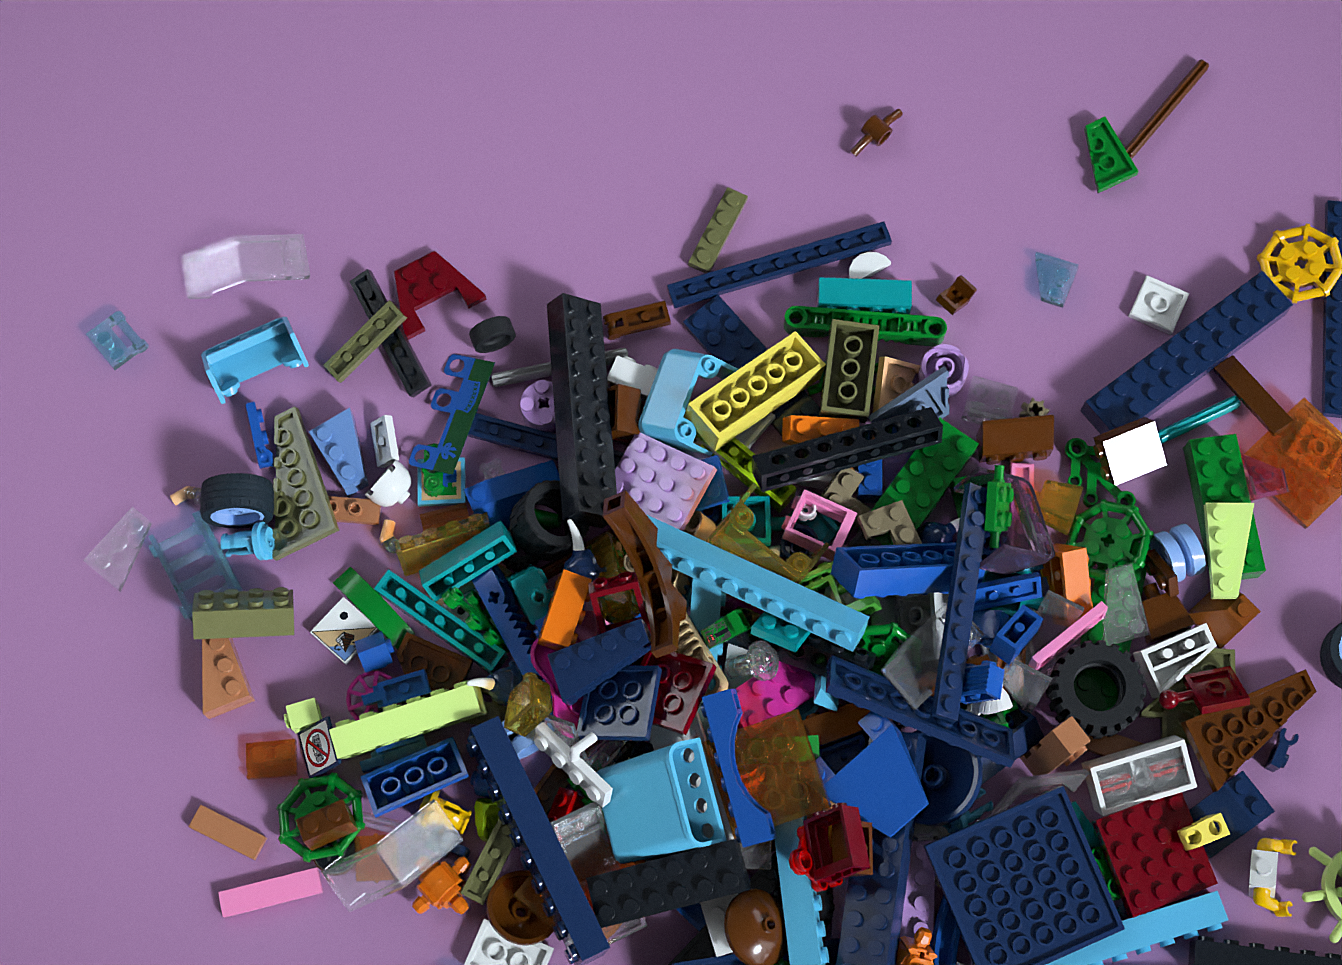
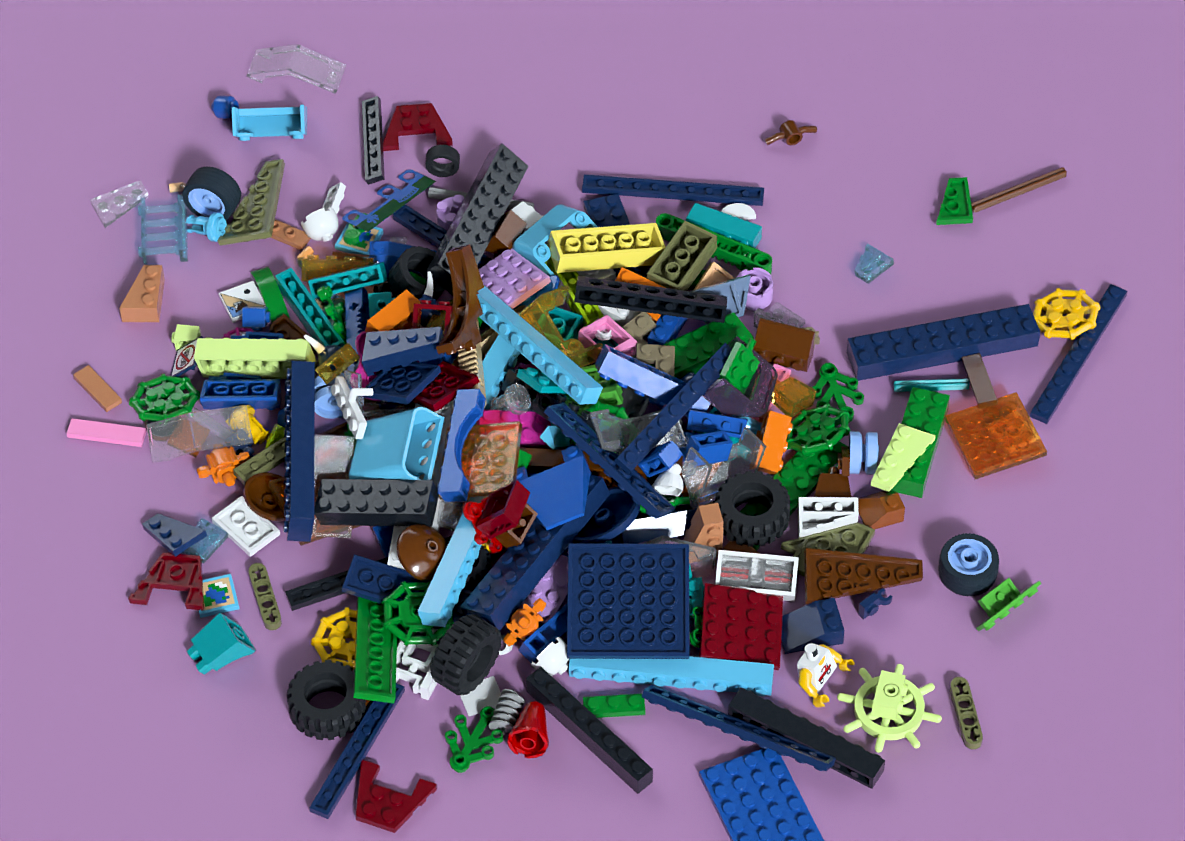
camera: 25 degrees right, 20 degrees down
(111, 345) = (179, 86): clear light blue plate -> none
(184, 356) = (223, 106): none -> blue head
(243, 613) = (176, 258): olive brick -> none
(260, 438) = (248, 168): blue hinge -> none
(271, 759) = (151, 357): clear orange plate -> none
(326, 824) = (165, 395): reddish brown brick -> none
(341, 449) = (301, 193): medium blue wedge -> none
(365, 341) = (352, 136): olive plate -> none
(637, 319) = (551, 189): reddish brown plate -> none
(718, 230) = (641, 156): olive plate -> none
(725, 628) = (501, 371): green leg -> none
(956, 295) = (792, 251): reddish brown bracket -> none
(1069, 636) = (768, 465): bright pink tile -> none
(1125, 611) = (802, 469): clear wing -> none
(1129, 451) = (861, 377): brick -> none
(1158, 305) = (942, 305): white tile -> none
(1203, 831) = (781, 621): light yellow leg -> none
(1210, 690) = (833, 539): dark red plate -> none
(1263, 479) = (953, 432): clear pink slope -> none

